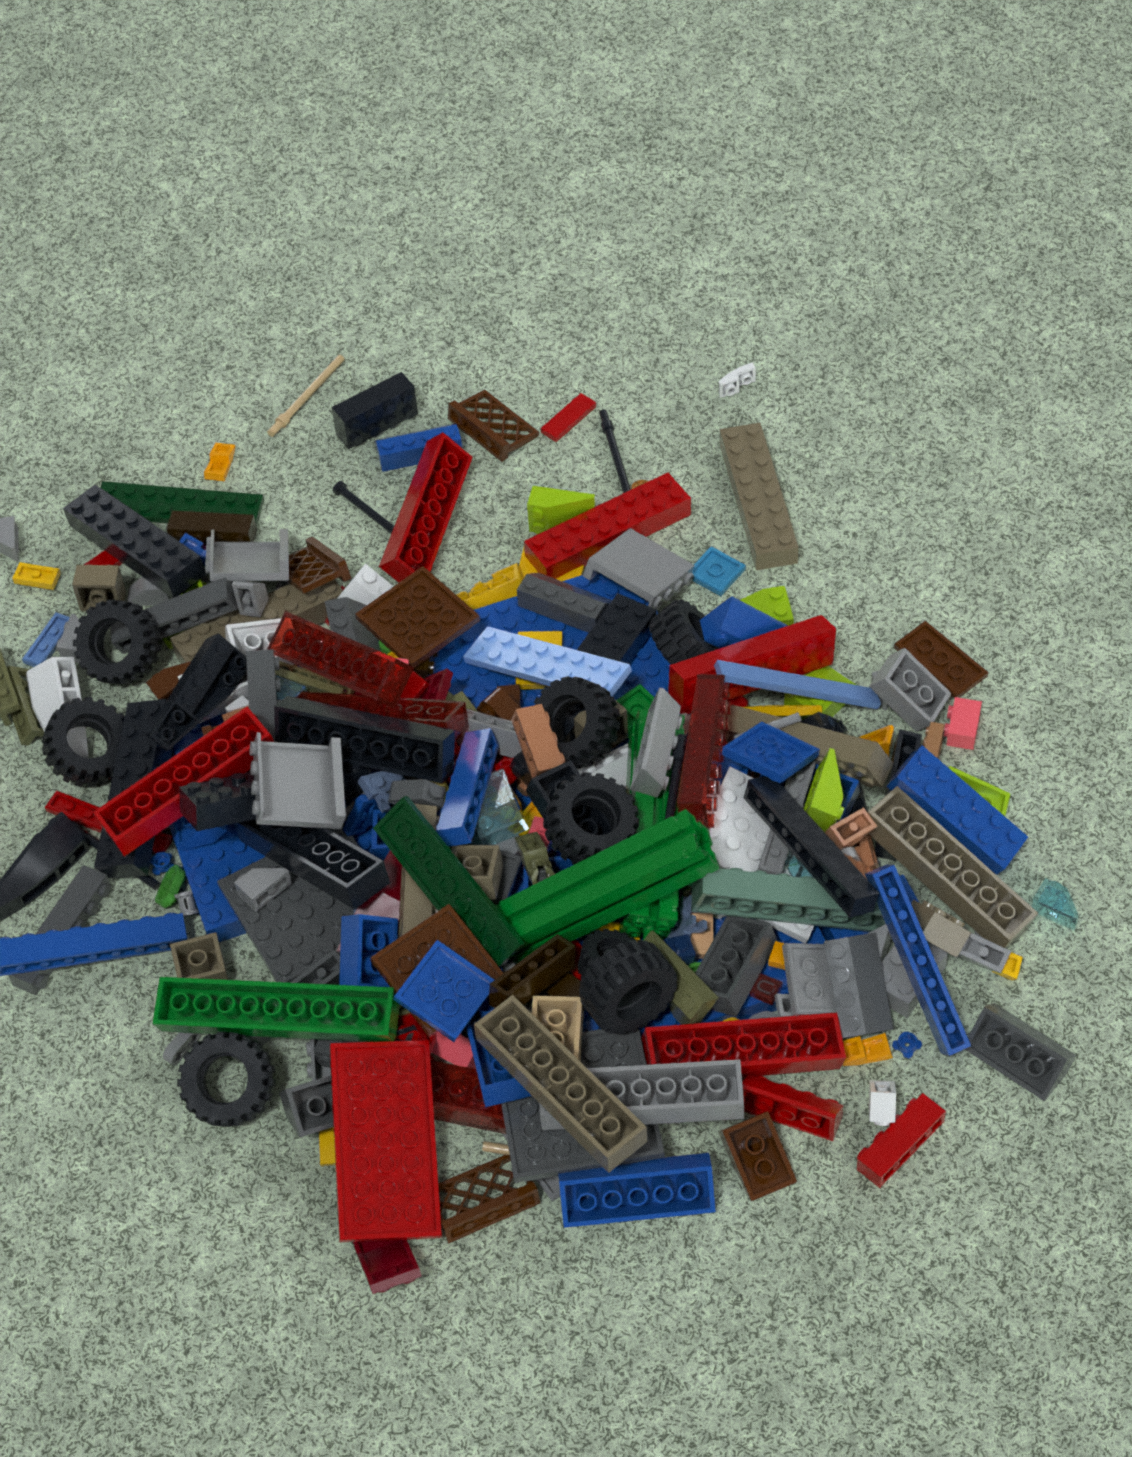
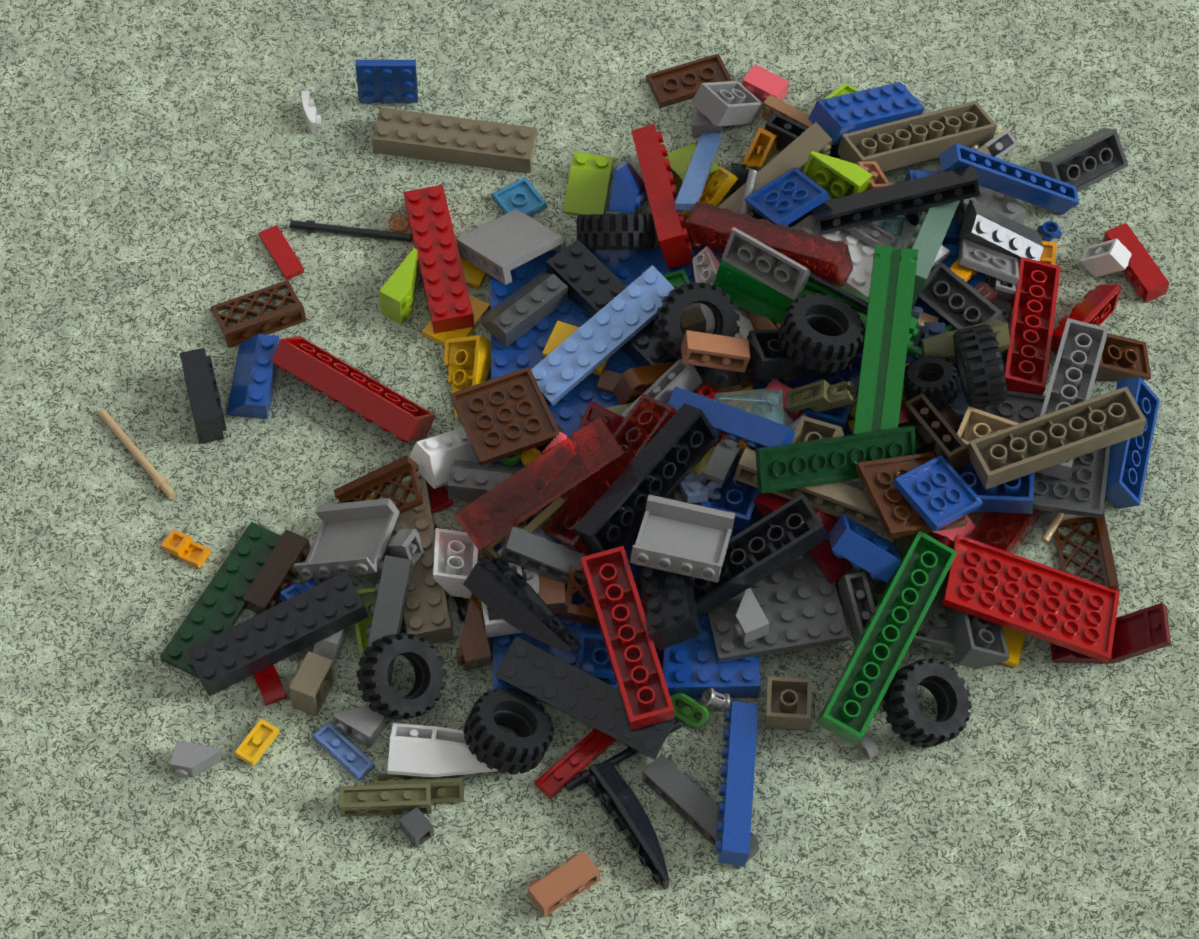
camera: 75 degrees left, 5 degrees up
(340, 488) = (277, 455): black bar -> none
(789, 414) = (387, 81): none -> blue plate
(1055, 904) = (962, 90): clear light blue slope -> none

